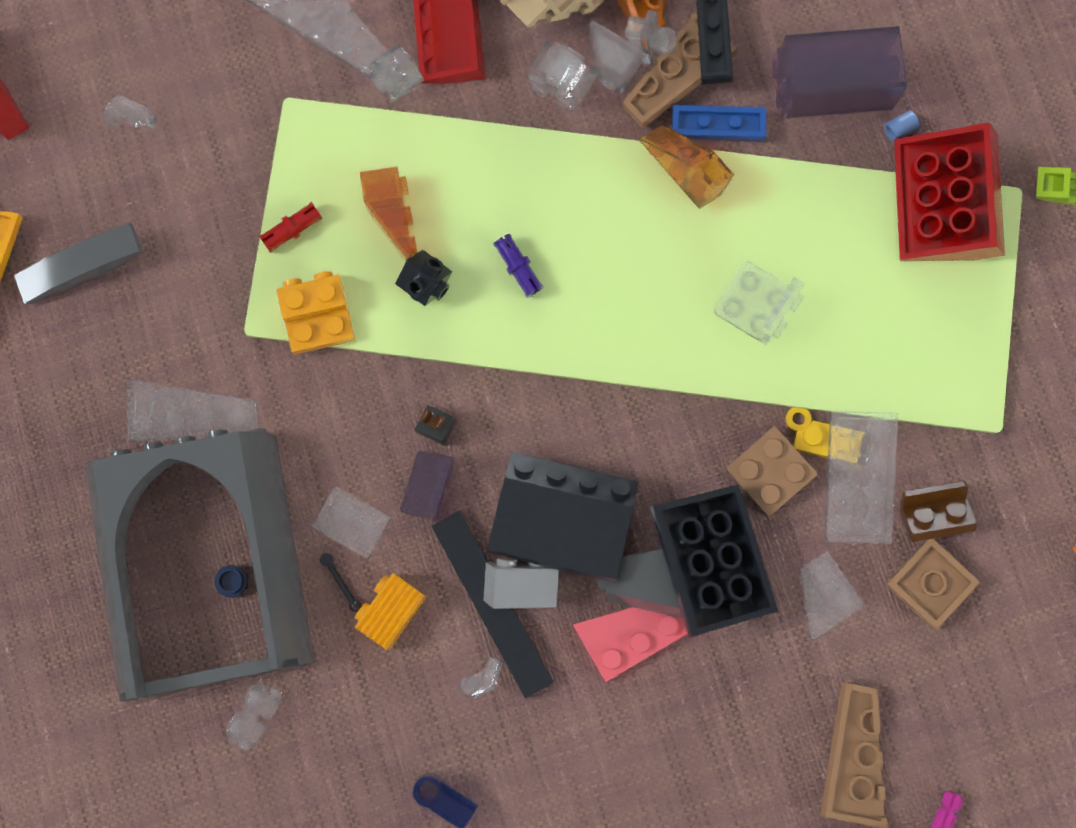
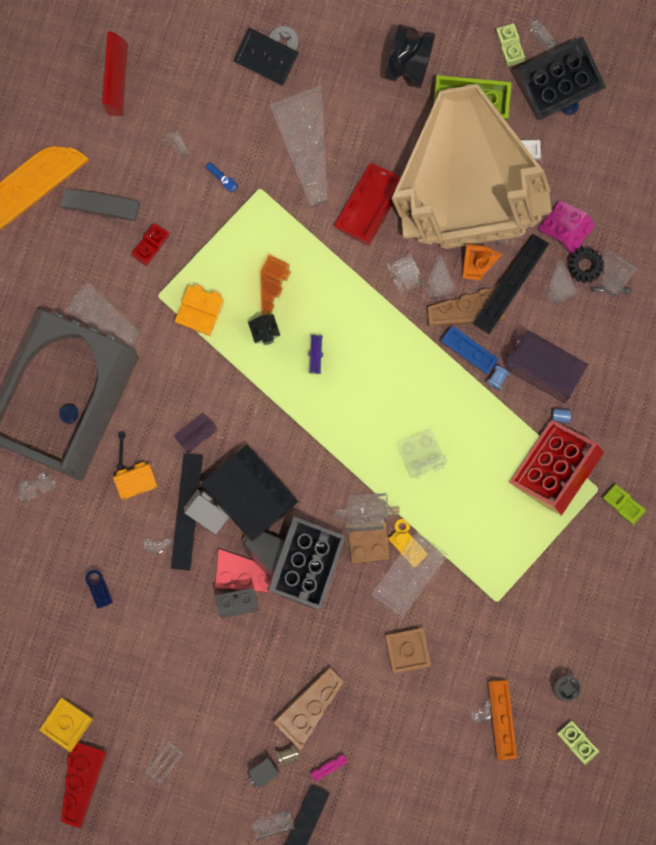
camera: 30 degrees right, 0 degrees up
(186, 272) = (150, 245): none -> red slope
(236, 120) = (228, 183): none -> blue piece
(290, 227) = (216, 257): red pin -> none
(351, 522) = (146, 425): clear plate -> none
(395, 73) = (323, 214): clear brick -> none
(435, 425) = (220, 405): pearl dark grey piece -> none
(648, 36) = (464, 283): clear hips -> none
(667, 674) = (230, 606): none -> dark grey window
(689, 164) = (436, 361): clear orange slope -> none
(741, 432) = (366, 512): none -> clear plate
(782, 133) = (498, 378): none -> medium blue bush
(827, 595) = (352, 621): clear wing -> none
(937, 511) = (435, 617): reddish brown bracket -> none

